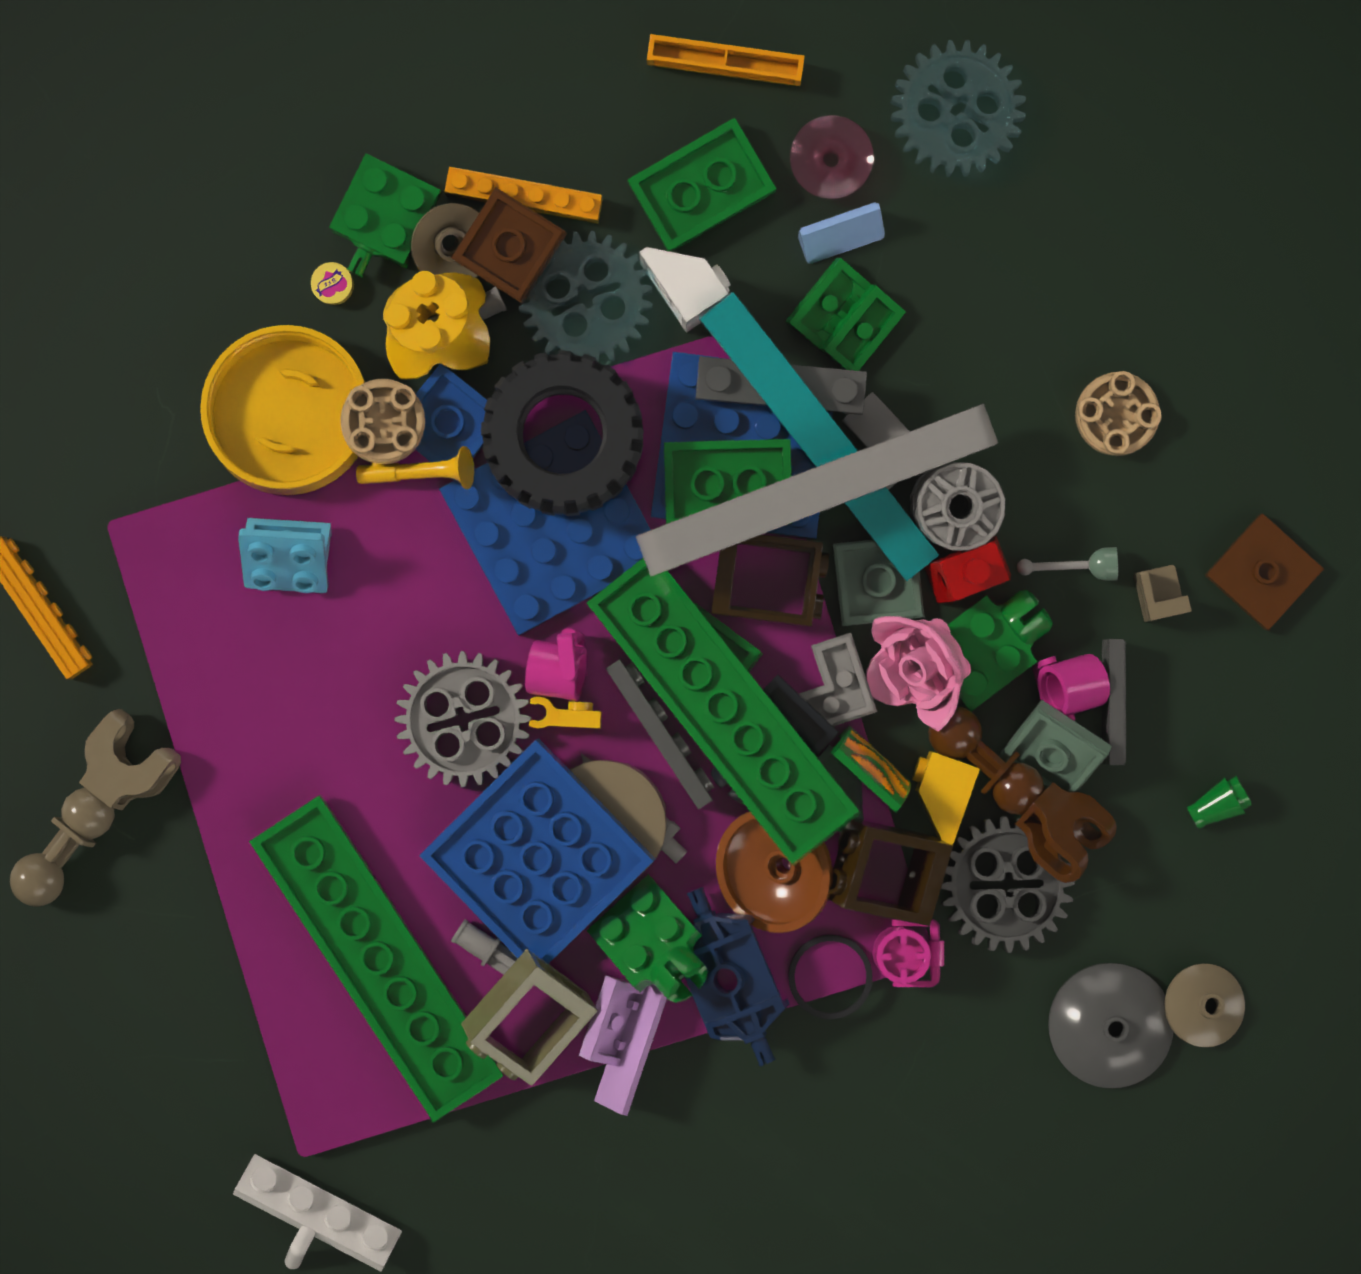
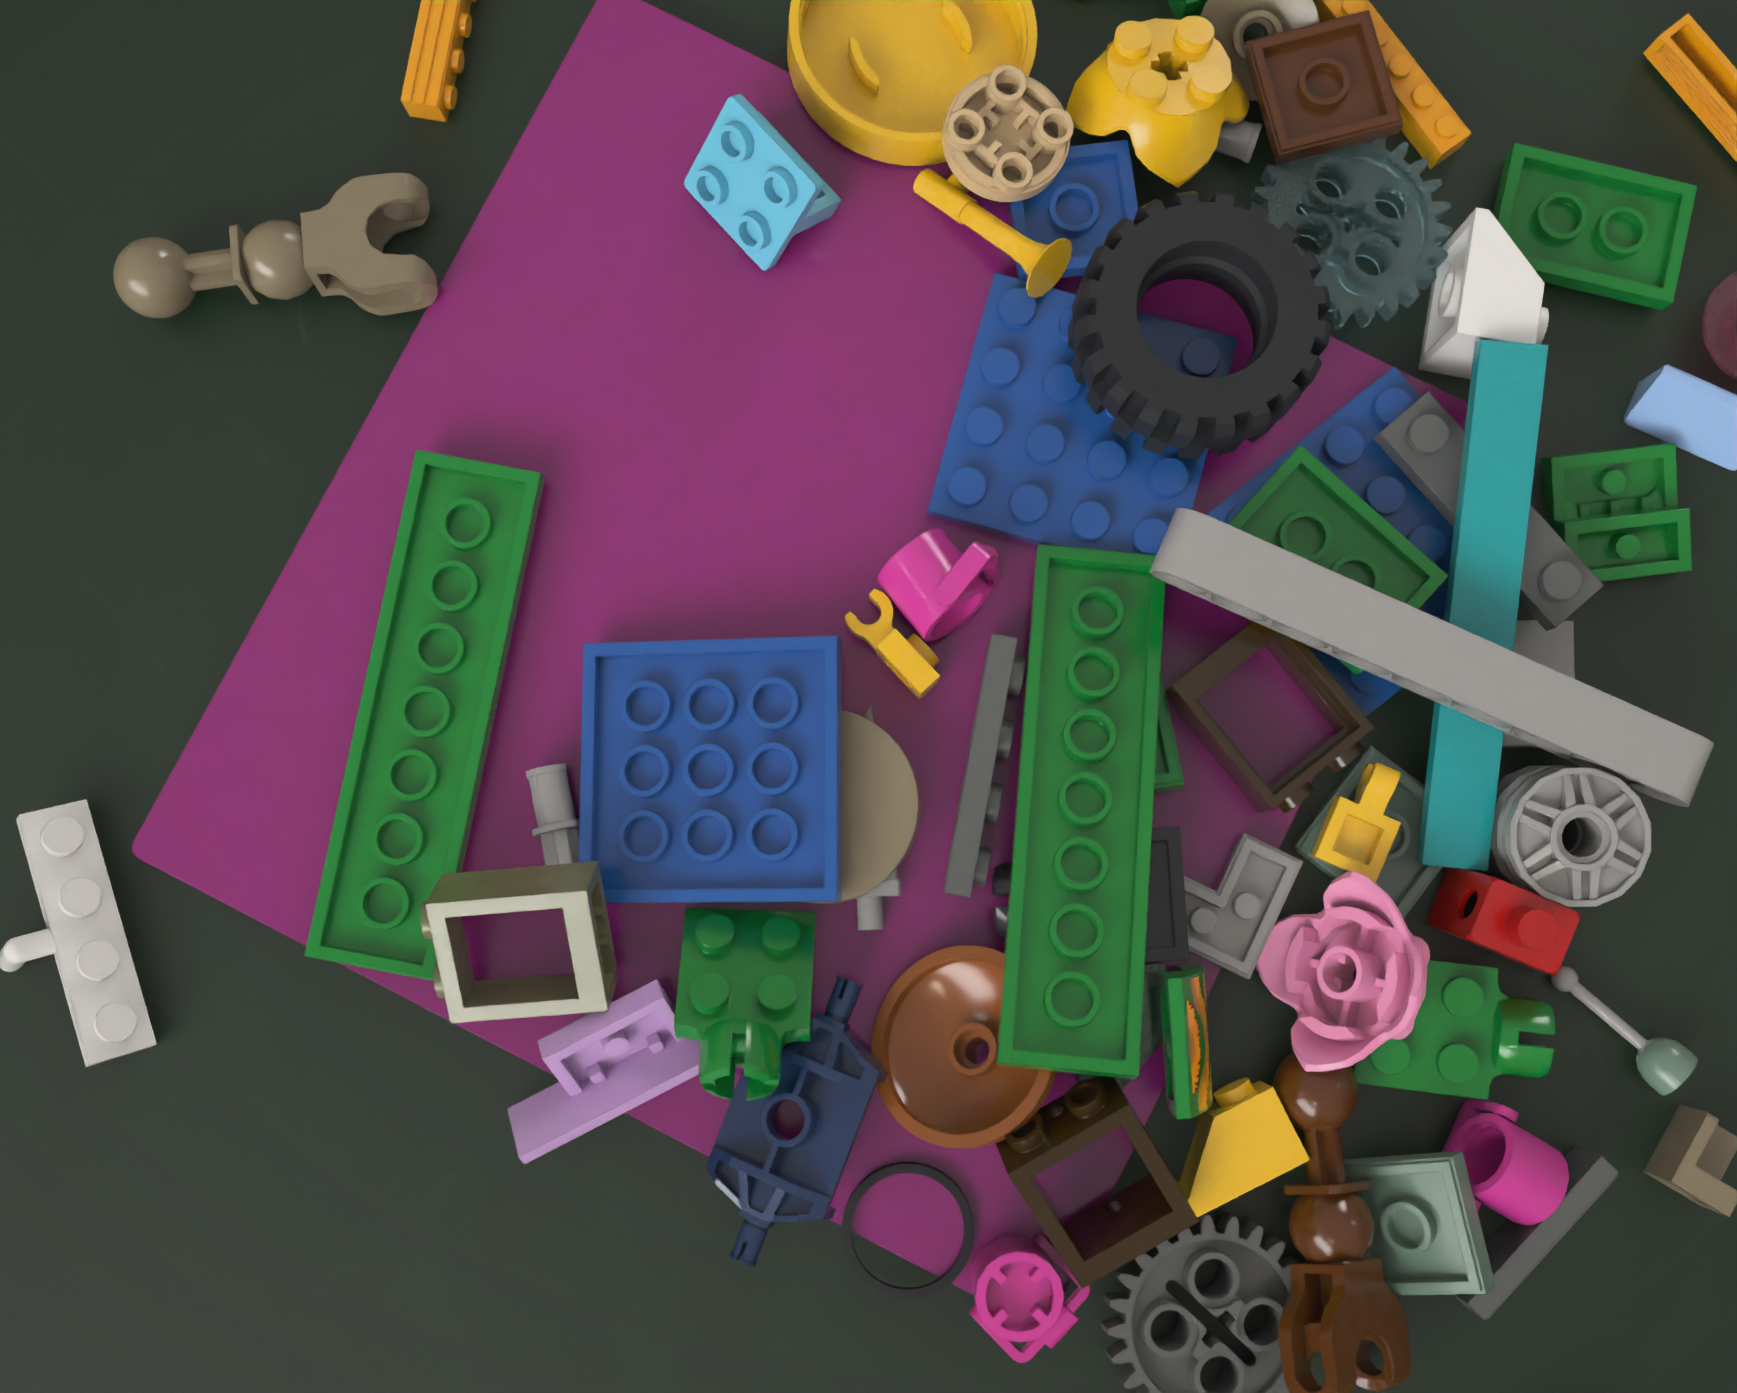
camera: 45 degrees right, 5 degrees down
(453, 682) = (808, 493): light grey gear -> none
(863, 595) = (1357, 832): none -> yellow plate

